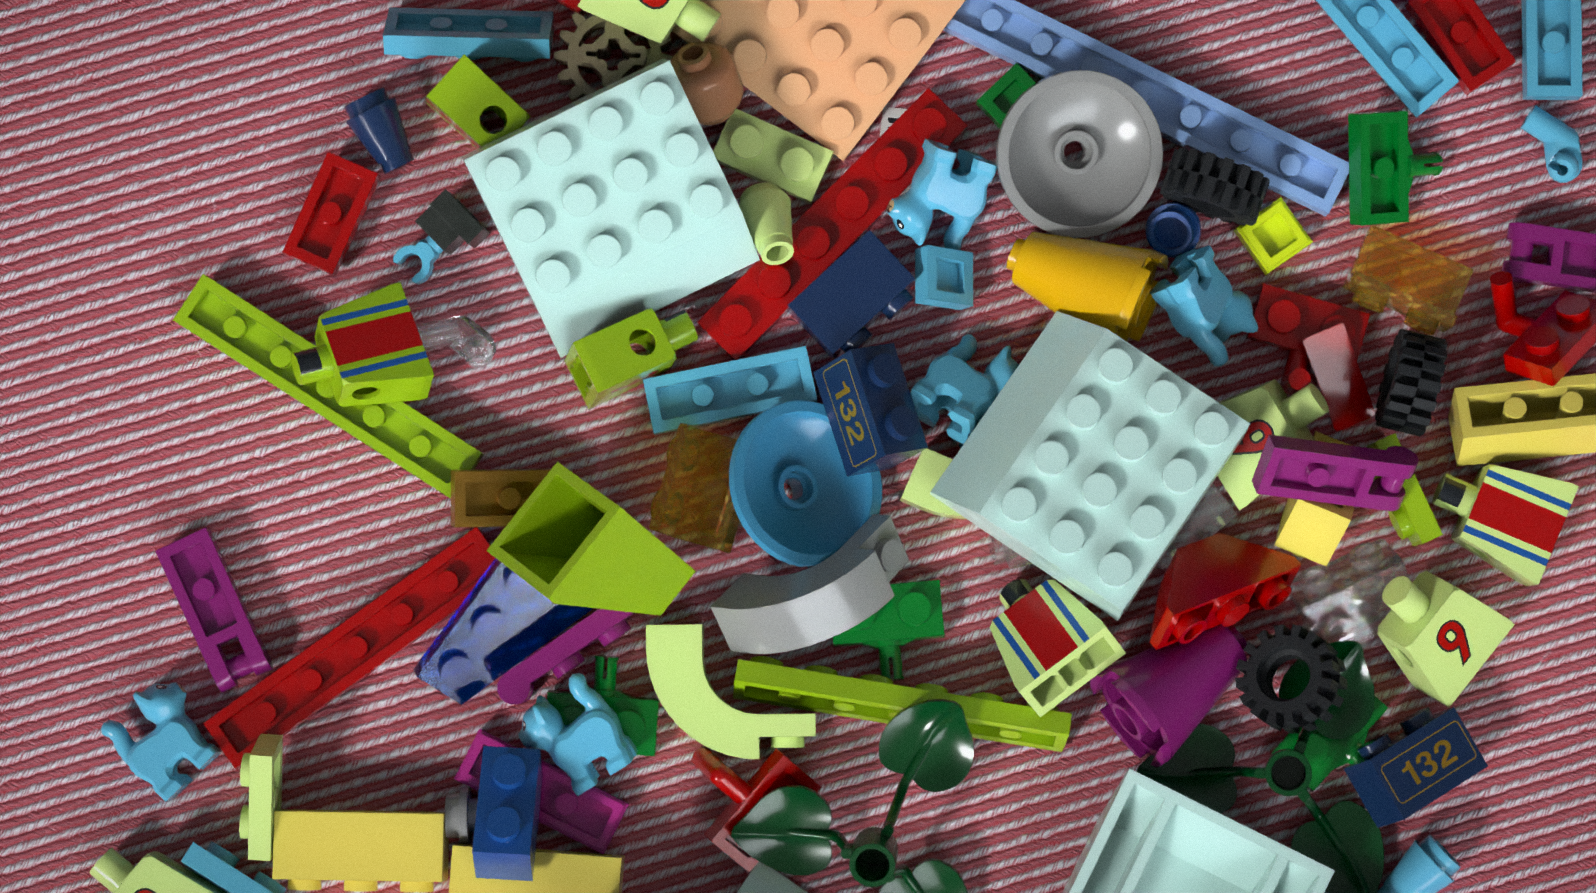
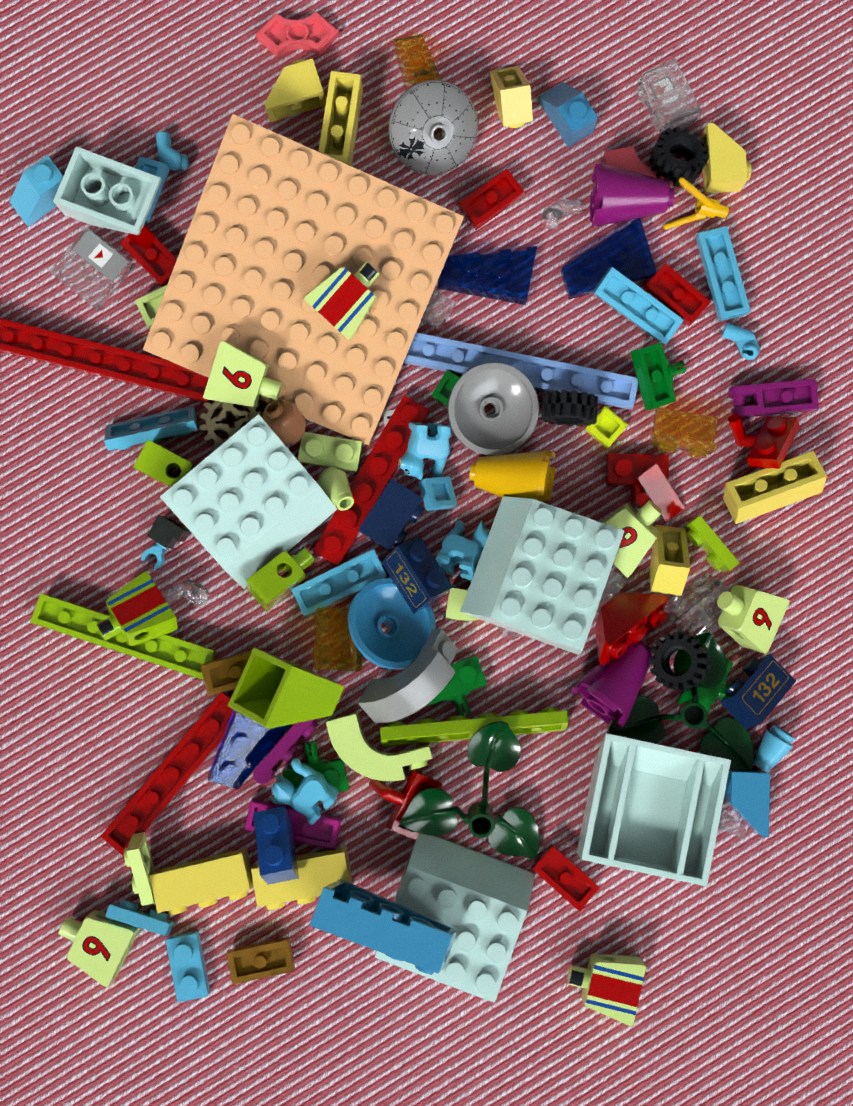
camera: 15 degrees left, 0 degrees up
(163, 749) = (87, 848): medium azure animal -> none
(213, 607) = (91, 771): magenta plate -> none
(331, 214) = (102, 543): red plate -> none
(380, 129) = (117, 491): dark blue cone -> none
(460, 815) = (249, 849): light grey plate -> none
(1050, 642) = (545, 675): yellowish green torso -> none
(1173, 229) = (553, 436): blue plate -> none
(1204, 302) = (580, 472): medium azure animal -> none
(1334, 472) = (674, 545): magenta plate -> none
(1411, 382) = (701, 486): black tyre -> none
(1508, 518) = (770, 544): torso -> none

